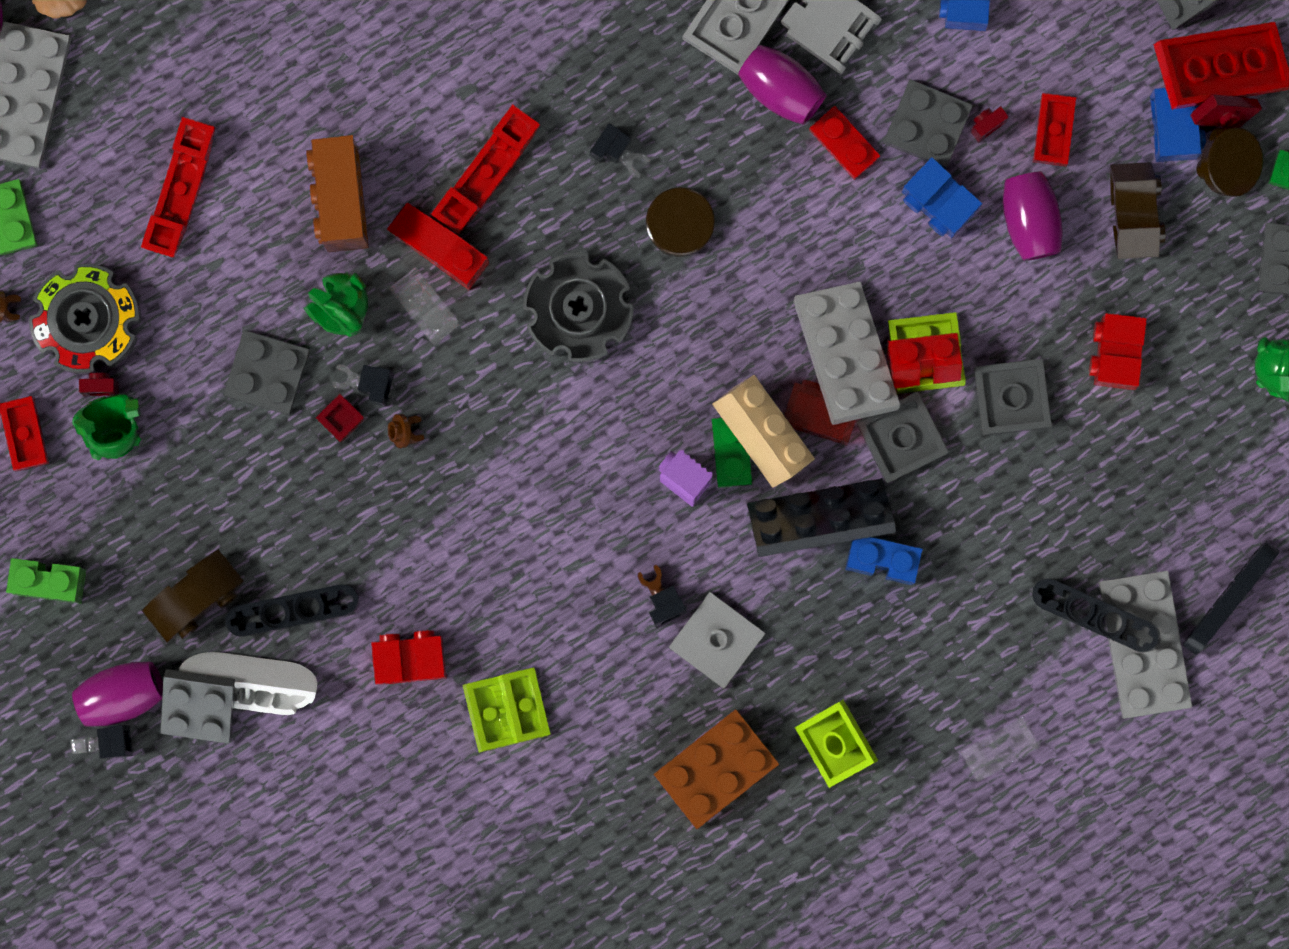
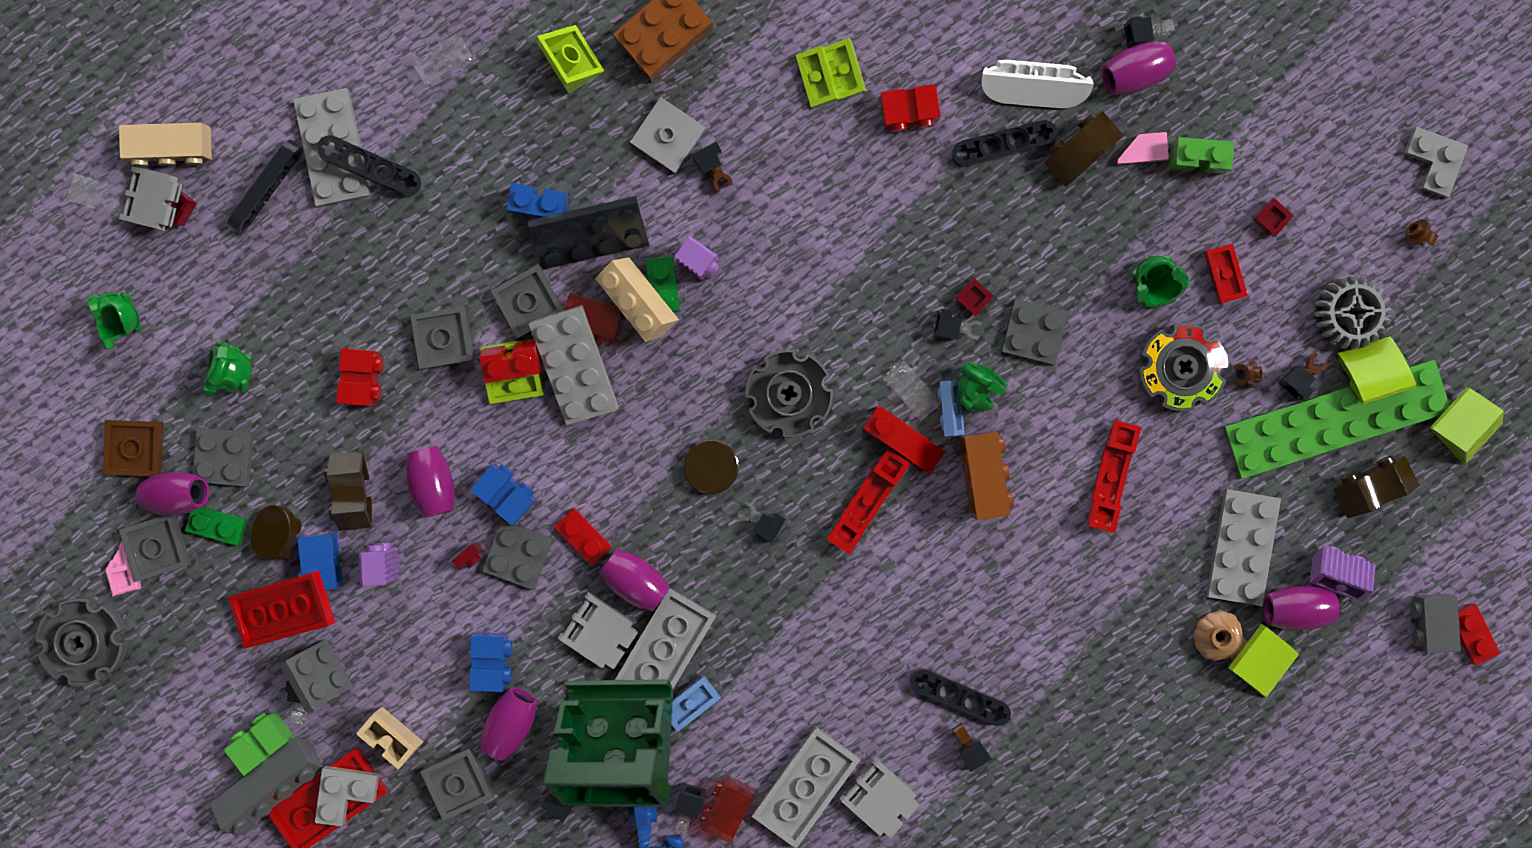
camera: 175 degrees right, 5 degrees up
(99, 385) = (1168, 315): dark red plate -> none
(114, 595) = (1146, 148): none -> bright pink tile
(197, 706) = (1075, 61): plate -> none
(375, 271) = (952, 410): none -> medium blue plate
(400, 431) = (926, 289): reddish brown plate -> none
(1054, 129) = (416, 553): red plate -> none
(1099, 115) = (379, 564): none -> medium lavender brick
(1225, 111) = (278, 572): dark red plate -> none

